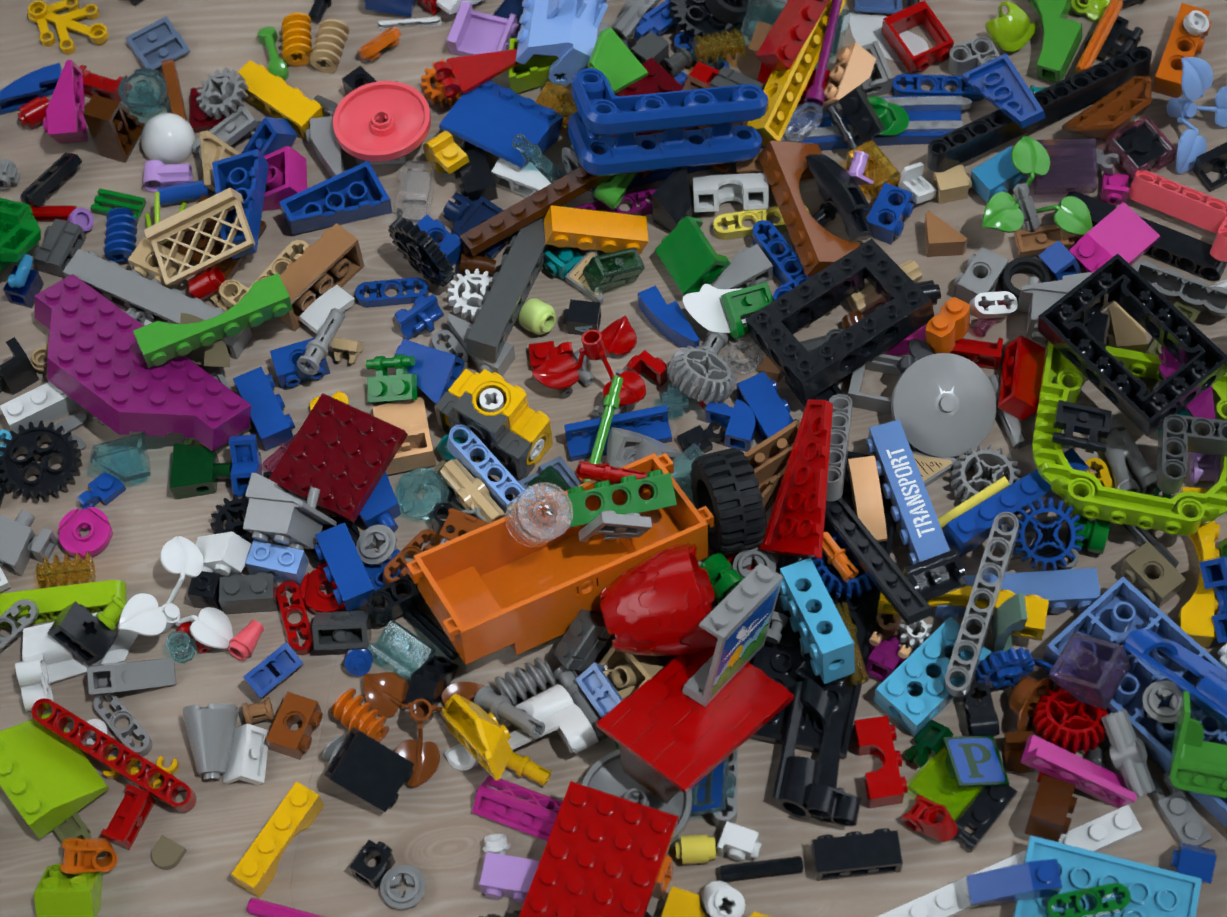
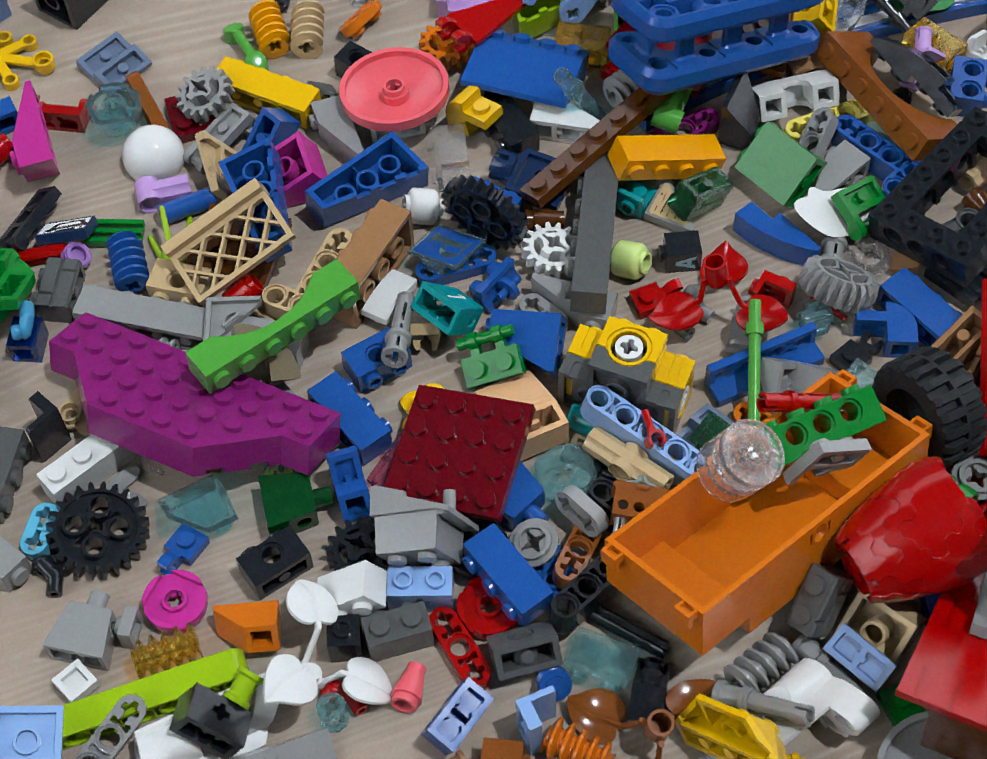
camera: 15 degrees left, 5 degrees down
(77, 196) = (66, 230): none -> dark blue tile
(112, 127) = (89, 149): reddish brown wedge -> none
(137, 564) = (250, 625): none -> orange slope
(182, 521) = (268, 577): none -> black brick
(184, 299) = (226, 311): none -> light grey tile
(332, 679) = (531, 713): none -> light blue panel
(367, 331) = (455, 316): none -> teal torso
(376, 232) = (424, 205): none -> white head
(385, 275) = (445, 248): none -> piece
(421, 526) = (582, 510): none -> light grey beam
(494, 471) = (652, 431): none -> red hand
(743, 233) = (821, 129): none -> light grey beam

